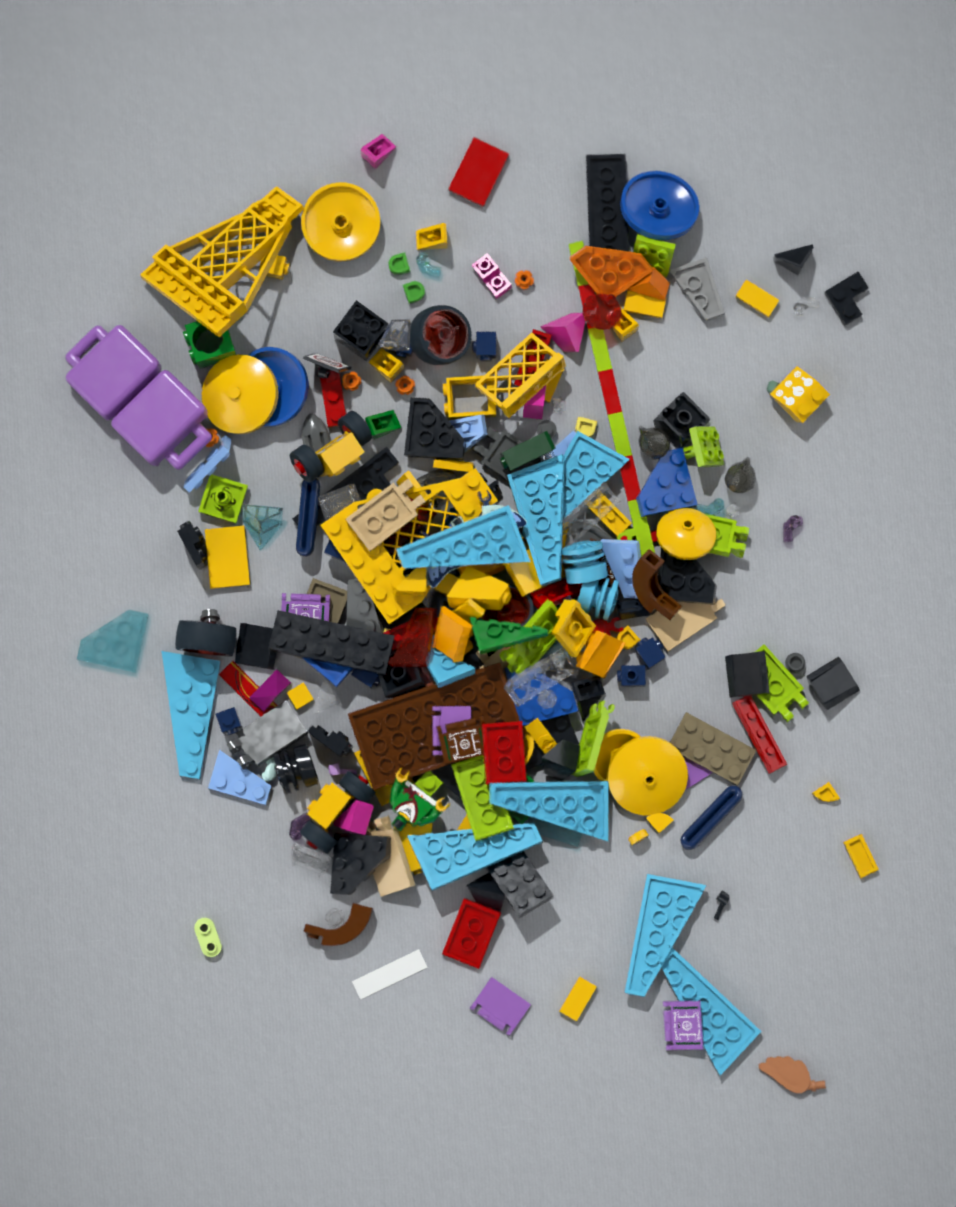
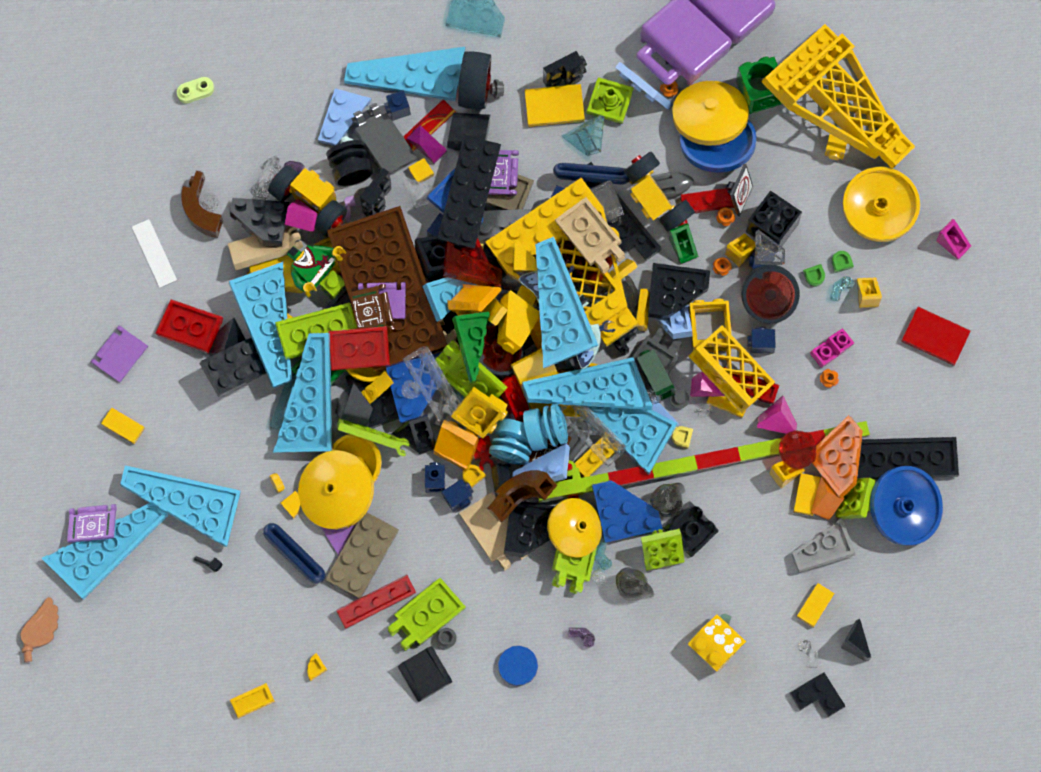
camera: 90 degrees right, 10 degrees down
(747, 674) = (434, 587): black slope -> none
(822, 591) = (518, 665): none -> blue tile

